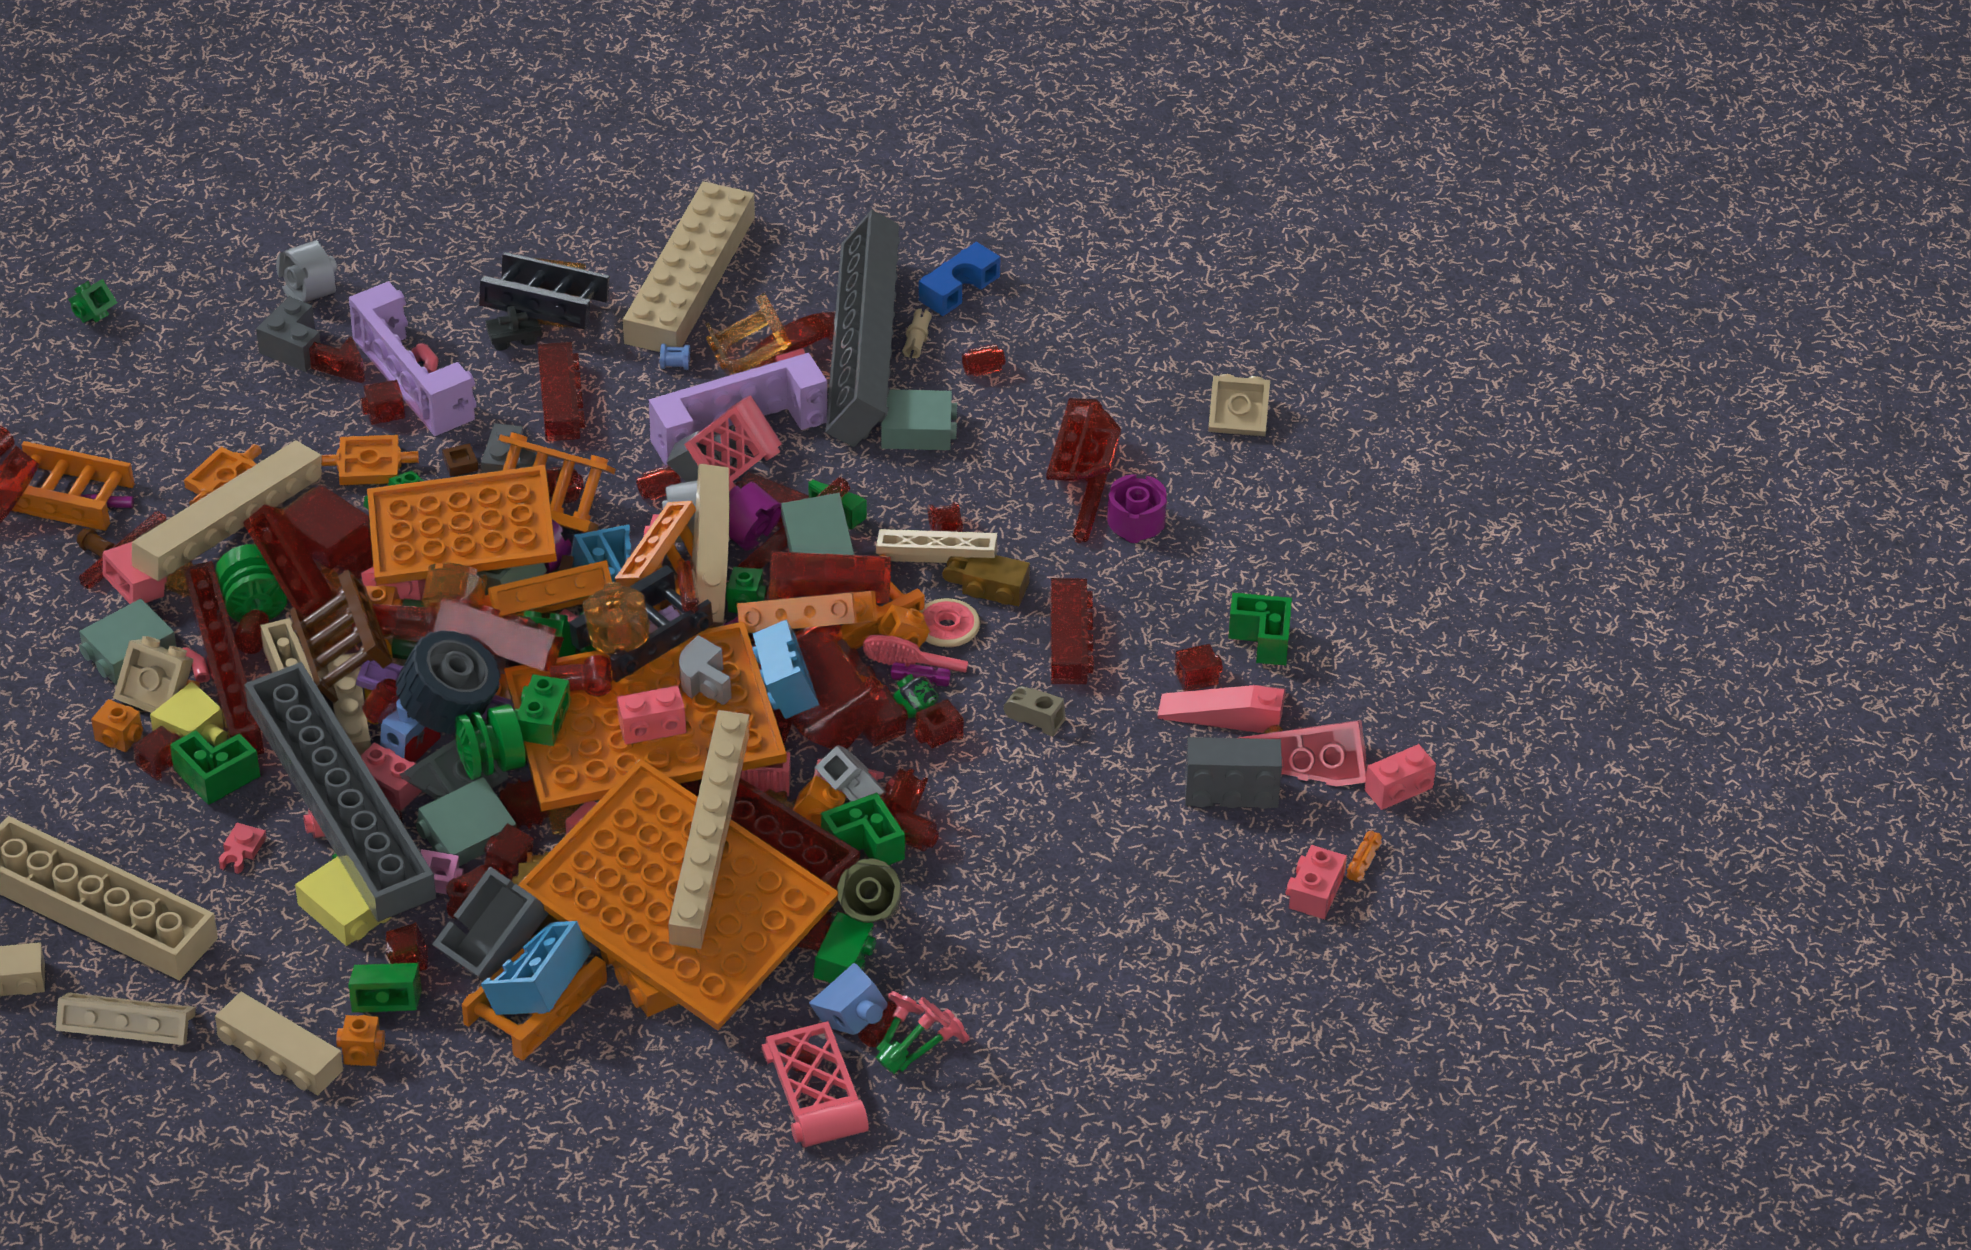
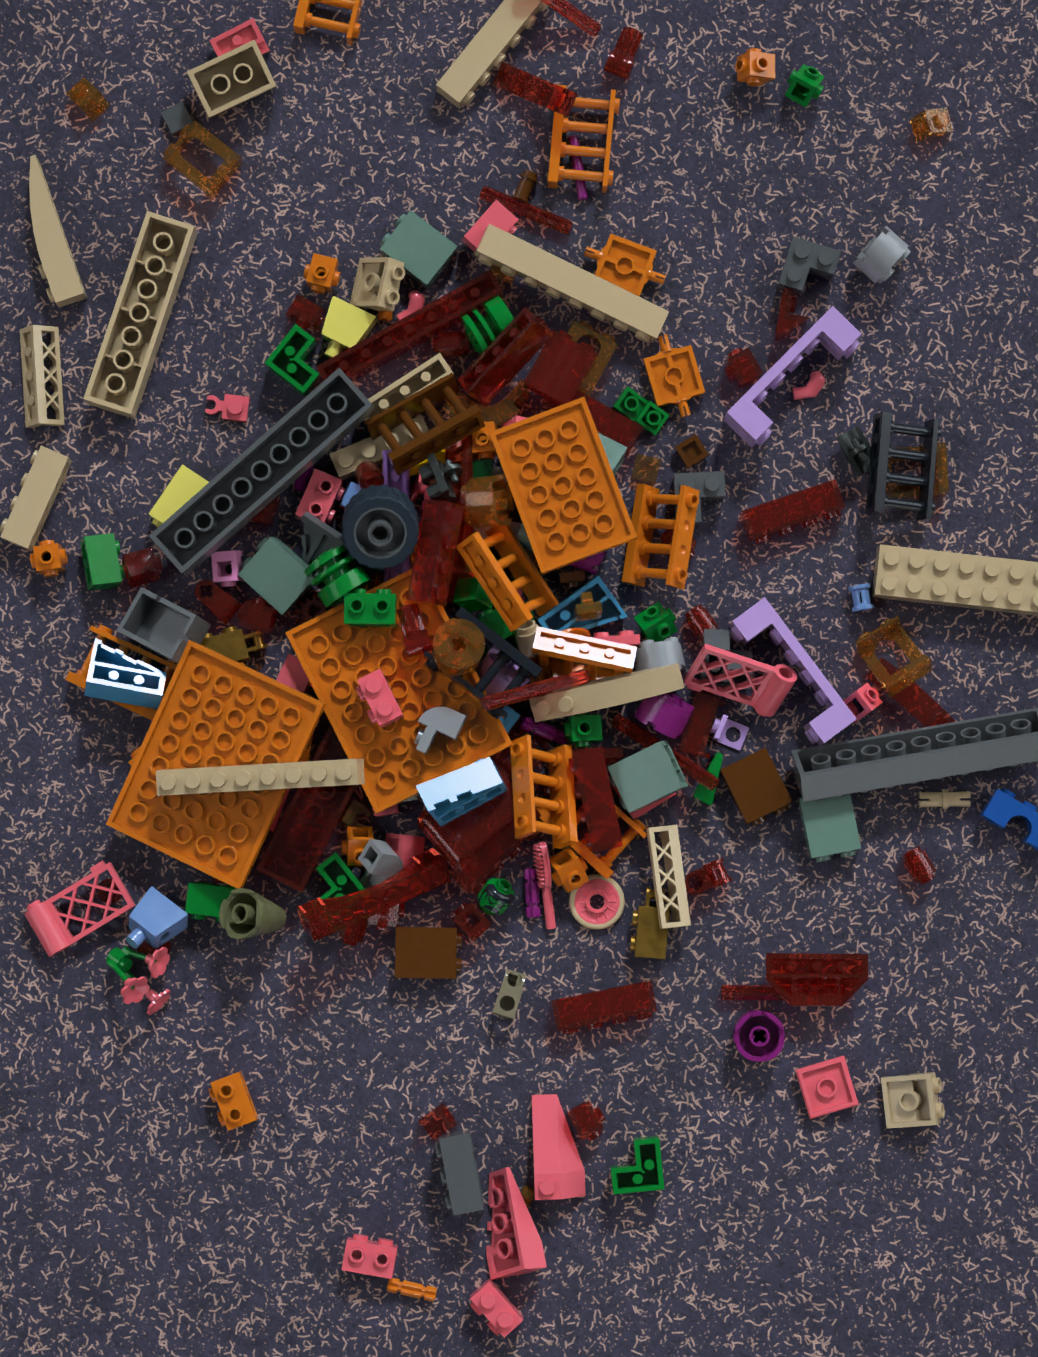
camera: 80 degrees right, 40 degrees up
(53, 335) = (755, 67): none -> orange brick
(179, 224) = (931, 123): none -> clear orange bracket
(406, 624) = (443, 476): none -> pearl dark grey hips
(609, 541) = (587, 609): none -> clear orange tile
(640, 509) = (656, 622): none -> green brick
(785, 477) = (719, 730): none -> lavender bracket
(862, 462) = (756, 787): none -> reddish brown brick
(895, 809) = (330, 915): none -> clear red arch
(964, 771) = (427, 952): none -> reddish brown brick
(1097, 975) = (233, 1100): none -> orange brick
(1165, 795) = (438, 1121): none -> clear red panel
(1208, 471) = (826, 1087): none -> coral plate

